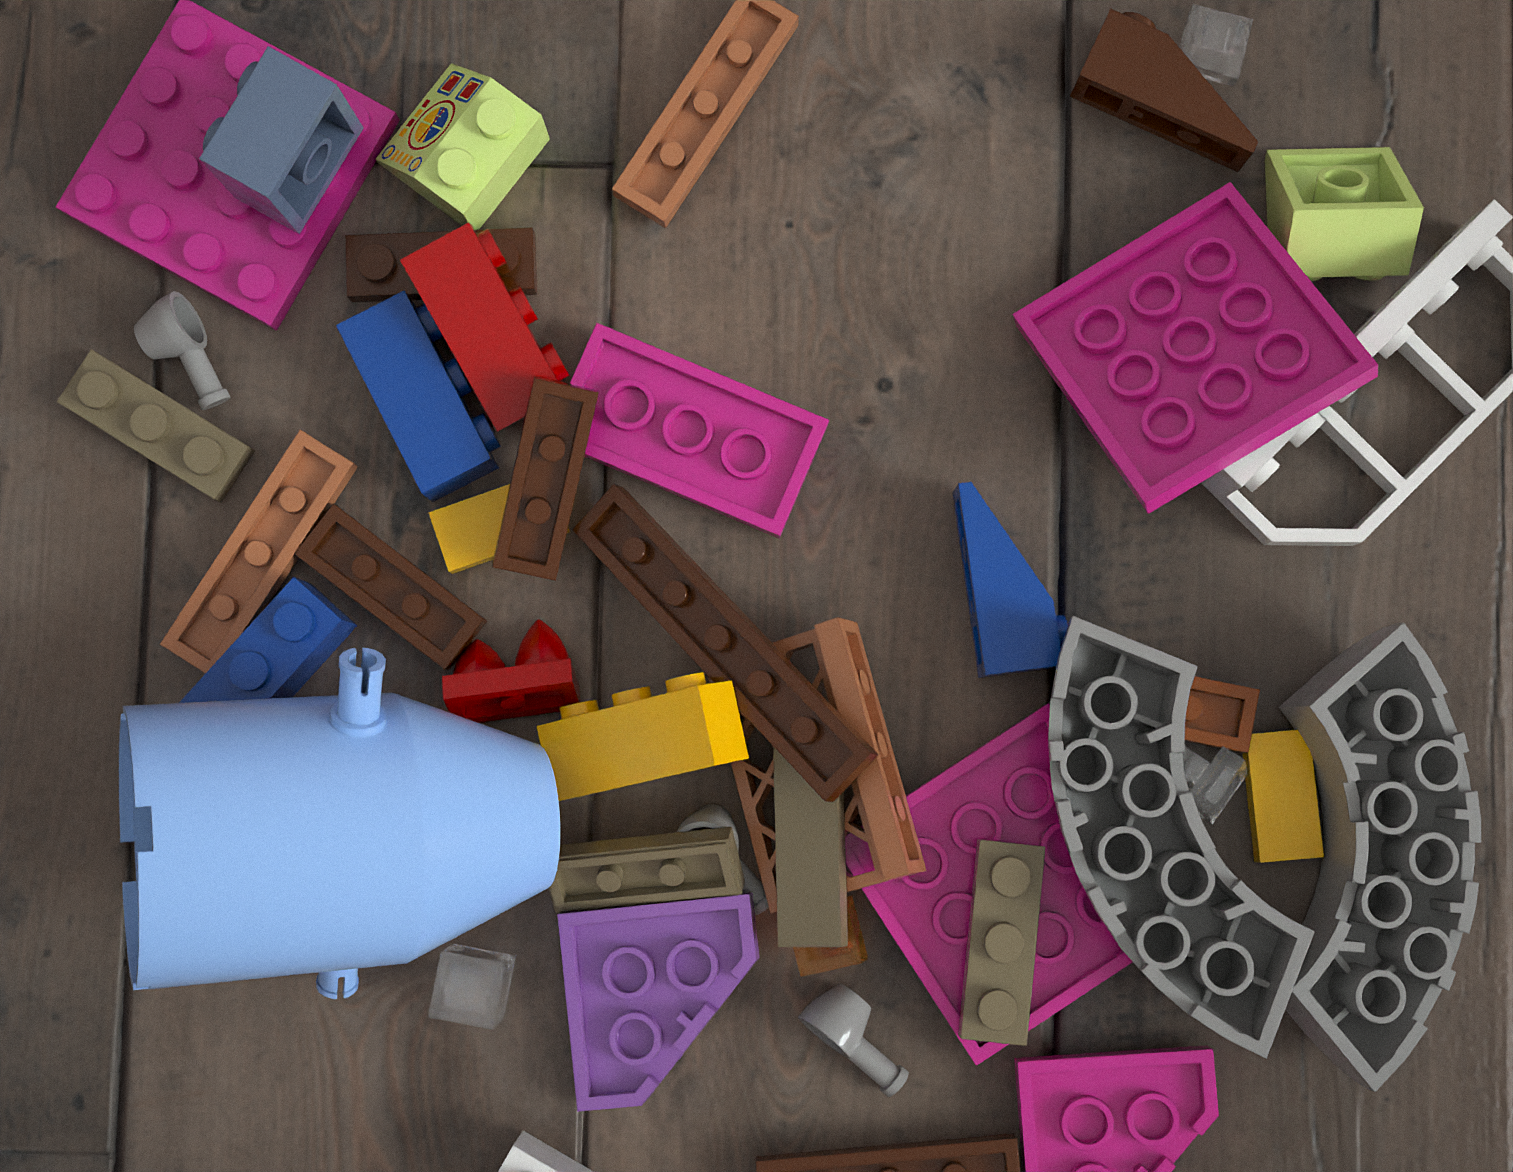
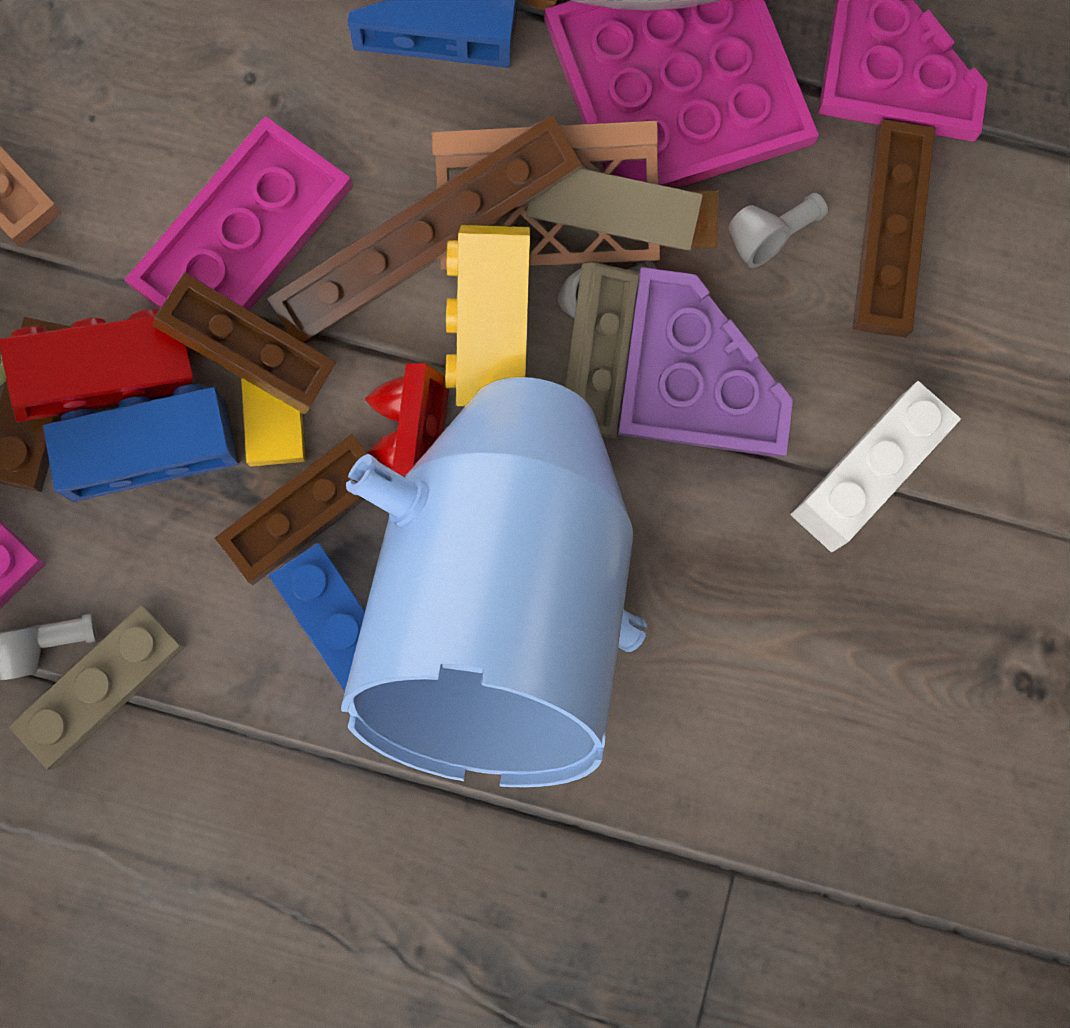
camera: 85 degrees left, 5 degrees down
(259, 551) = (240, 616): nougat plate -> none
(471, 986) = (664, 515): clear brick -> none
(1001, 942) = (725, 86): dark tan plate -> none

